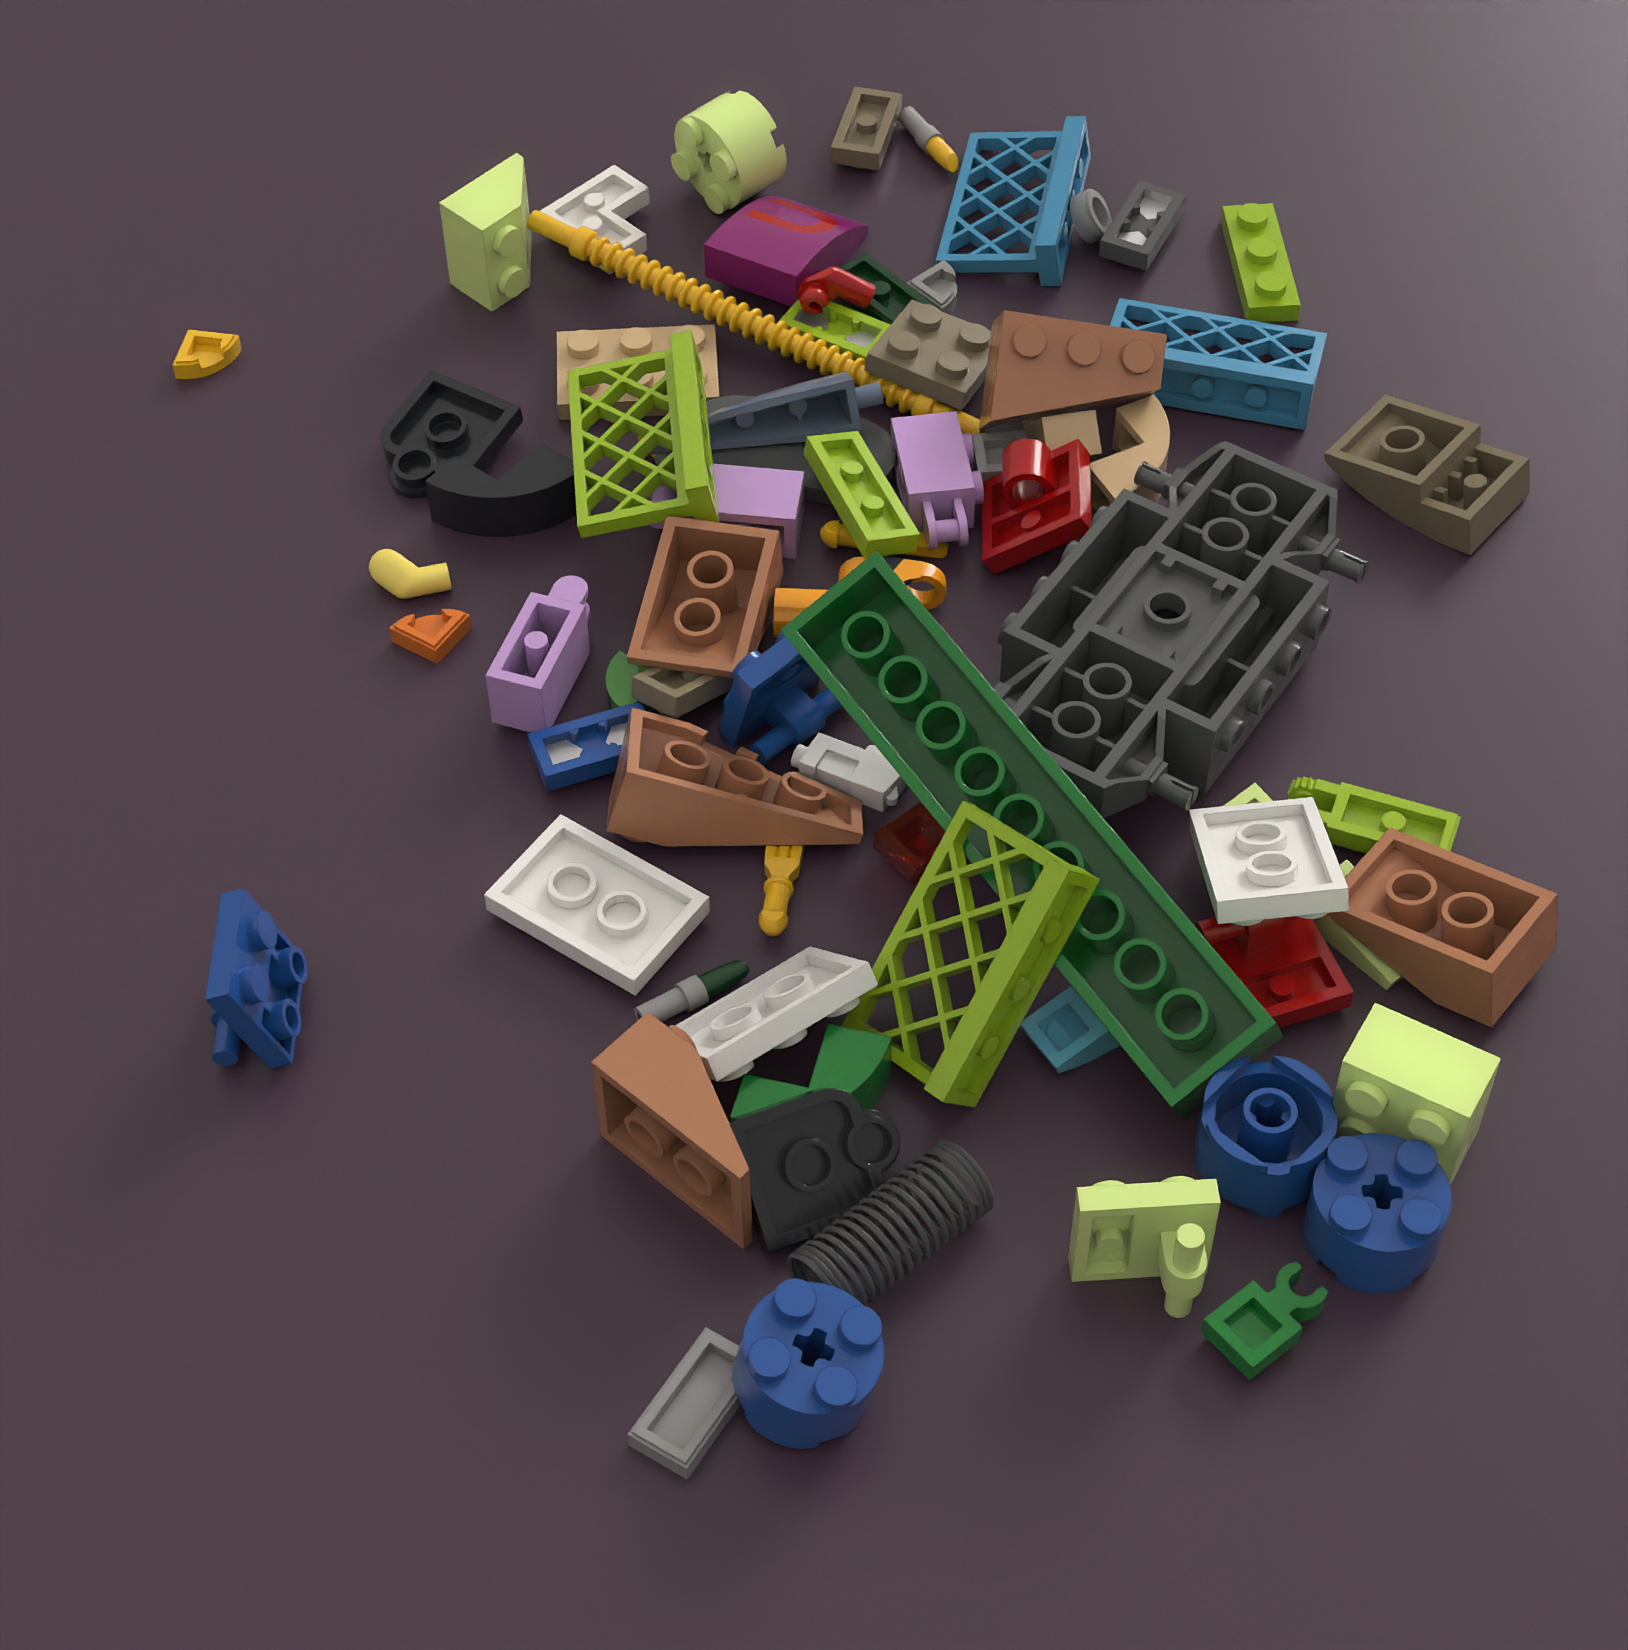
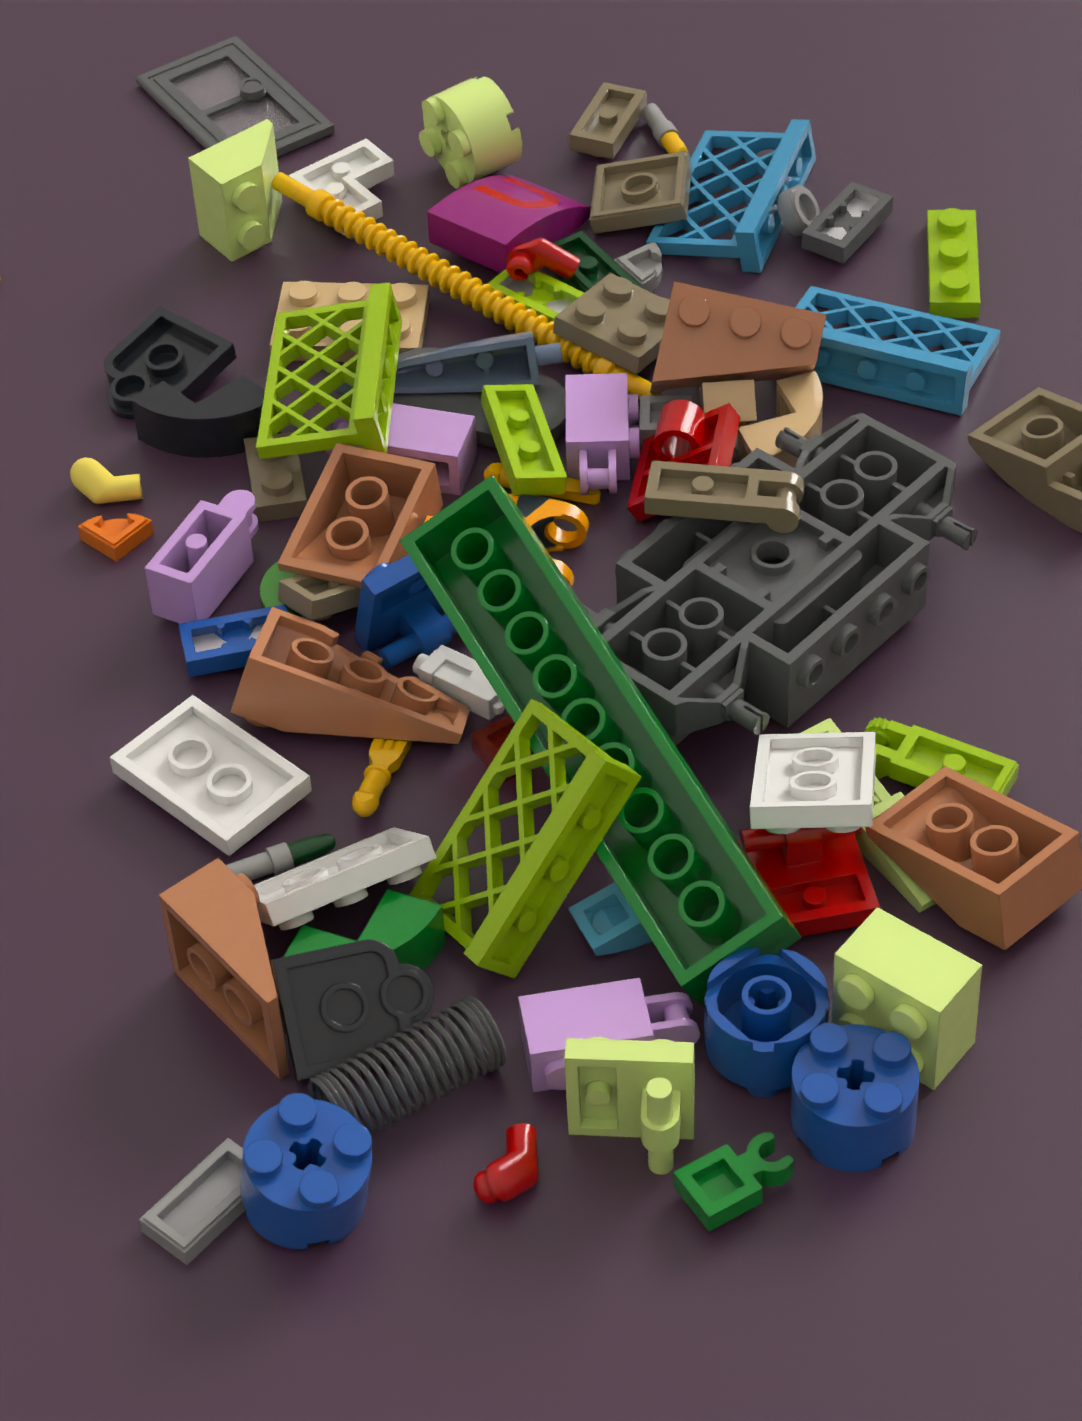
camera: 10 degrees right, 5 degrees down
(455, 127) = (229, 91): none -> dark grey door
(595, 558) = (275, 483): none -> dark tan plate
(919, 206) = (641, 192): none -> dark tan plate
(1026, 1334) = (512, 1172): none -> red arm
(1049, 1160) = (598, 1010): none -> lavender brick
(1107, 545) = (725, 494): none -> dark tan plate

